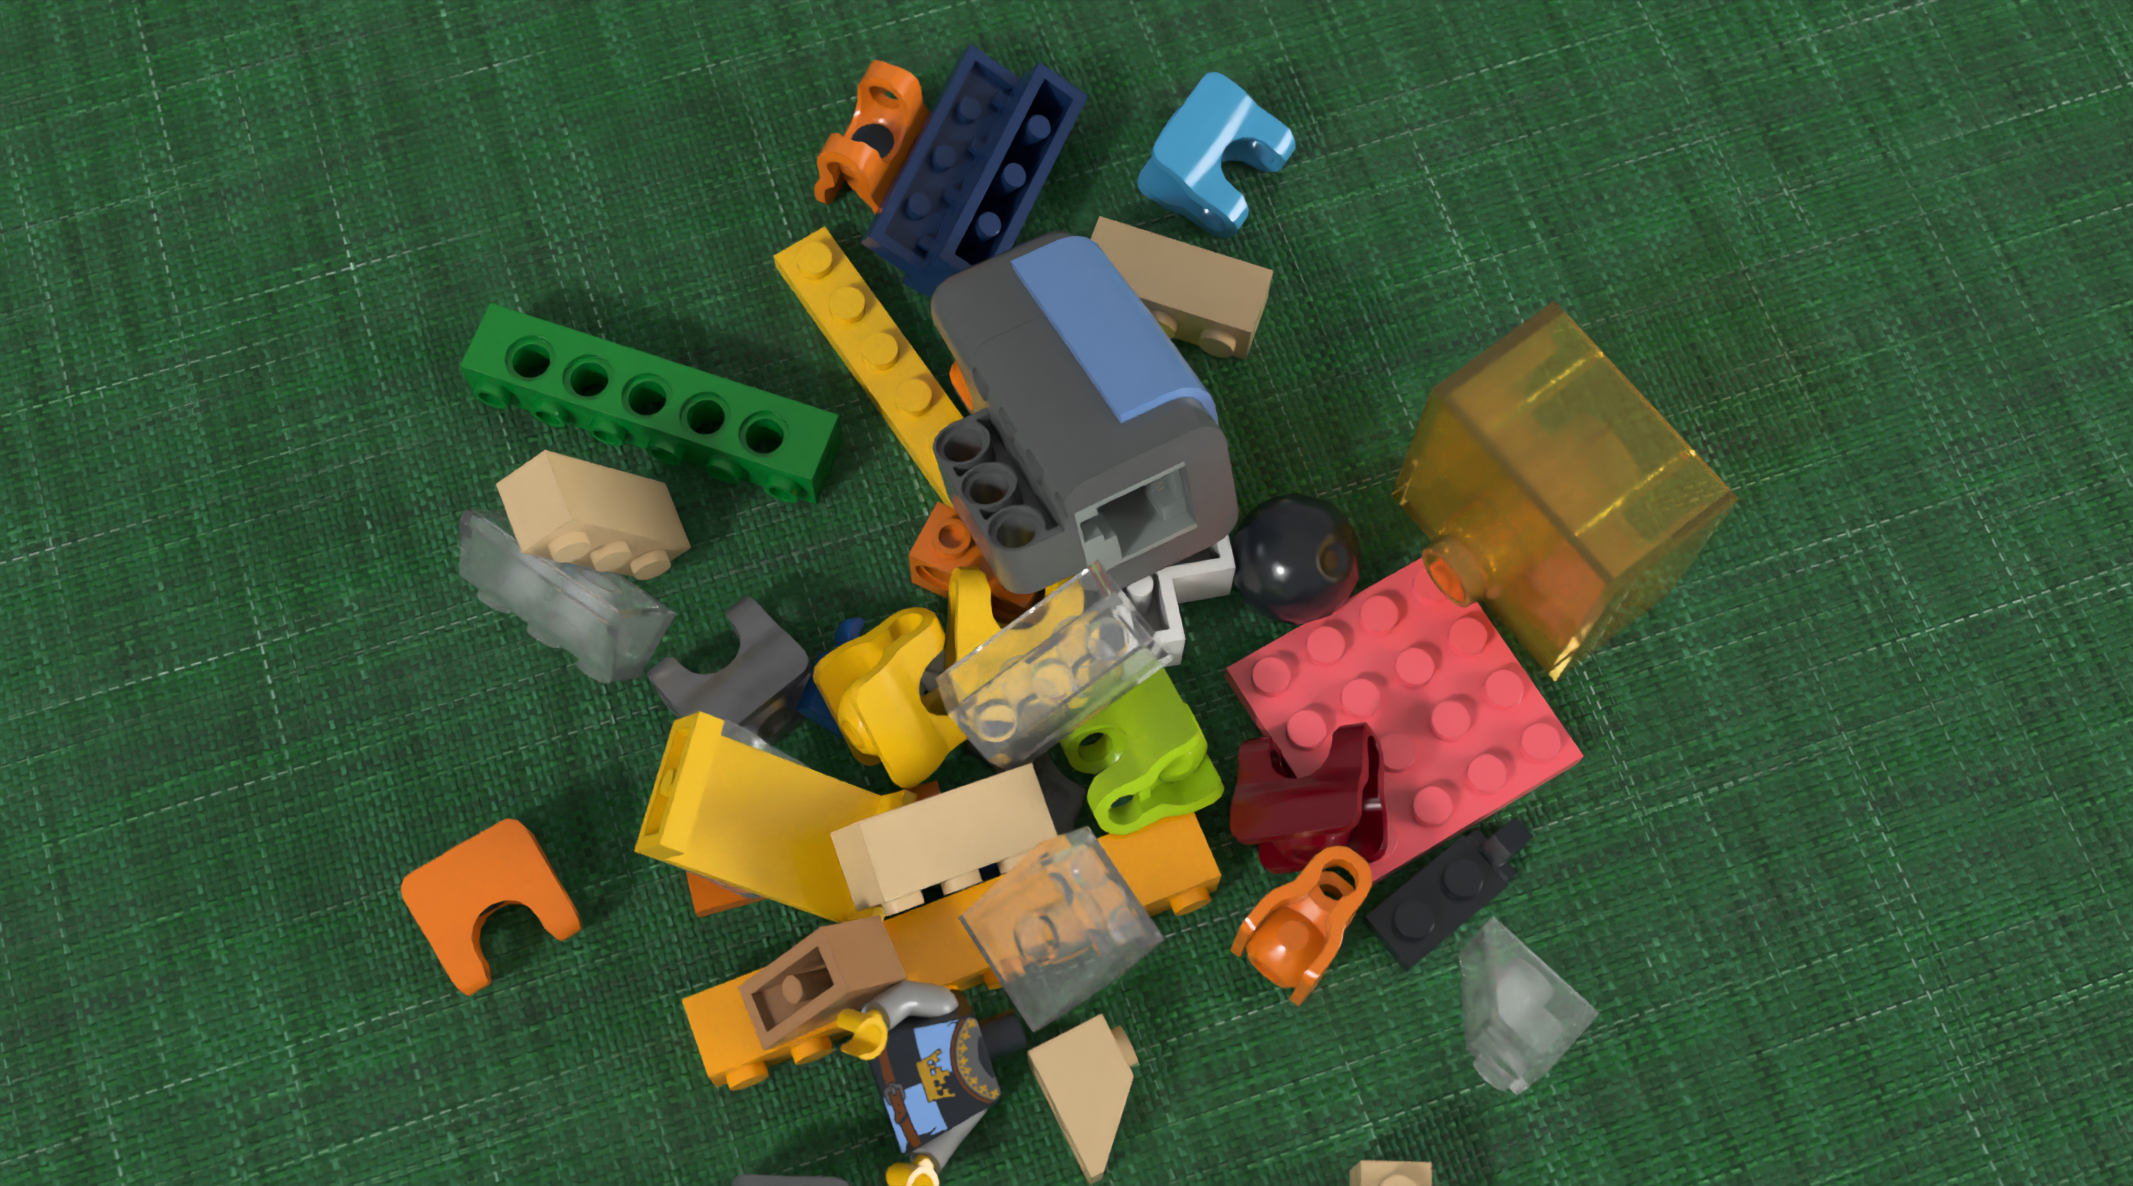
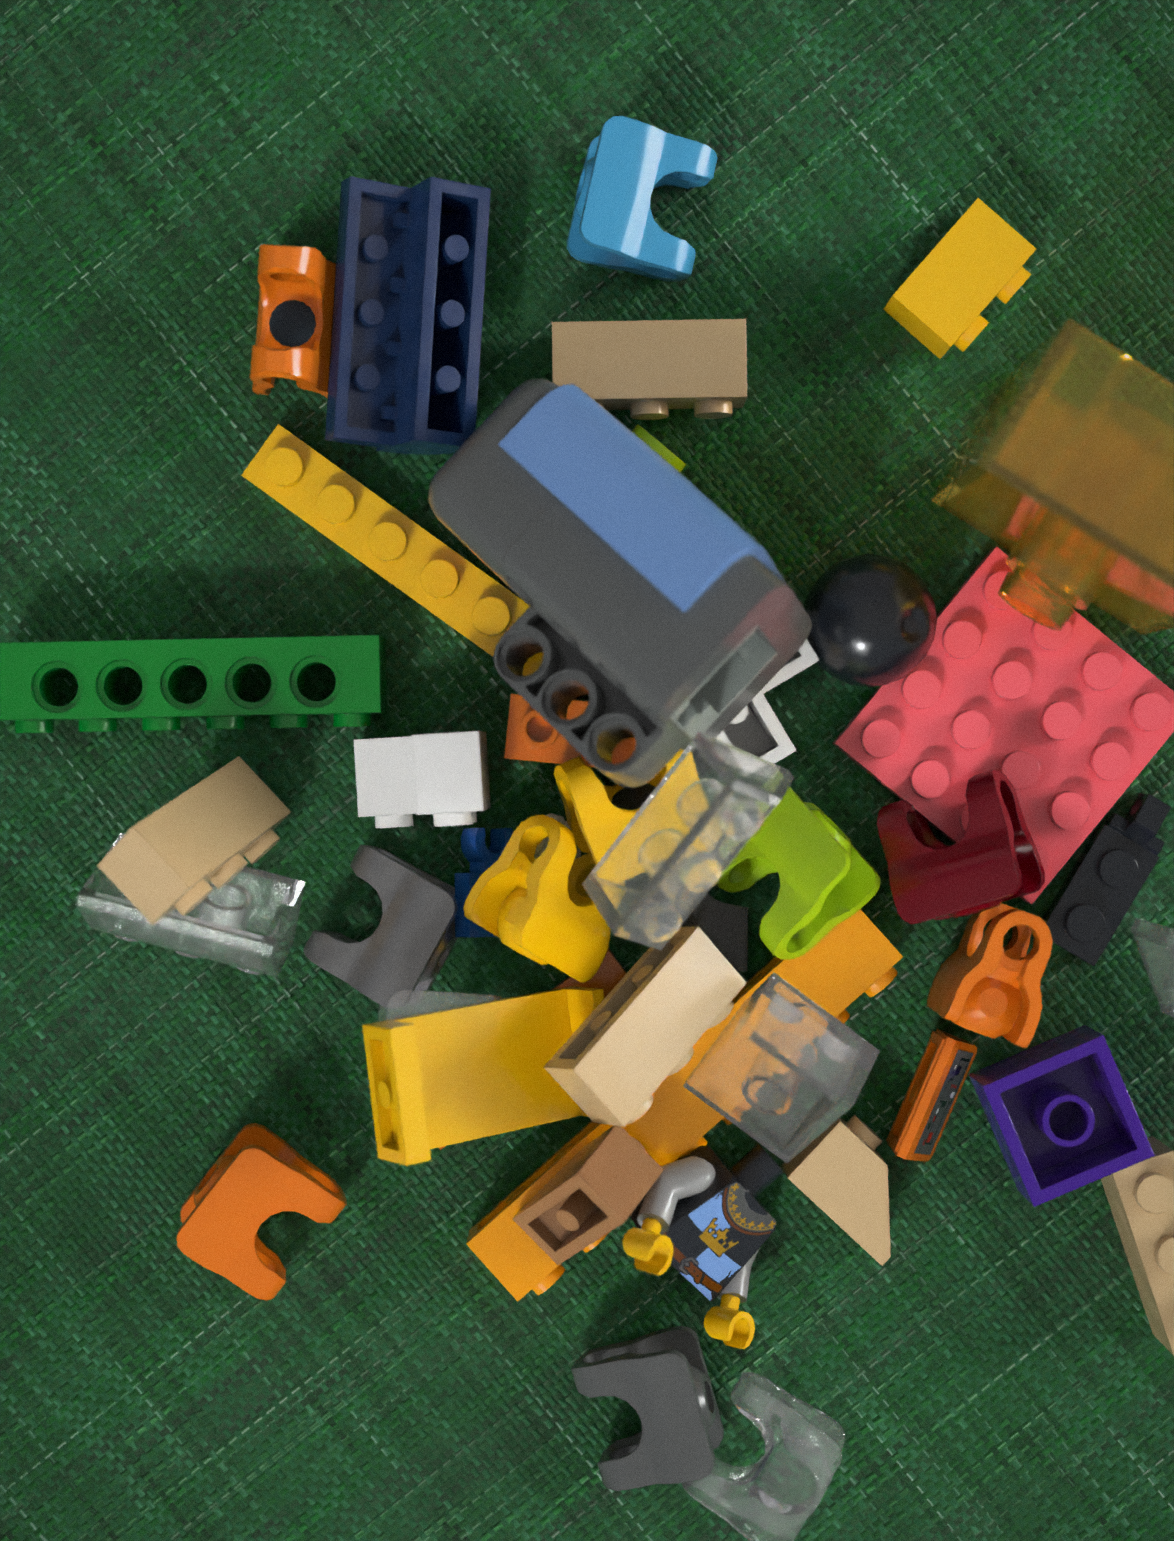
camera: 20 degrees left, 20 degrees up
(830, 553) = (422, 776): none -> white brick
(1205, 1041) = (931, 1096): none -> orange slope
(1327, 1092) = (1061, 1115): none -> dark purple brick
(1474, 309) = (960, 278): none -> yellow brick

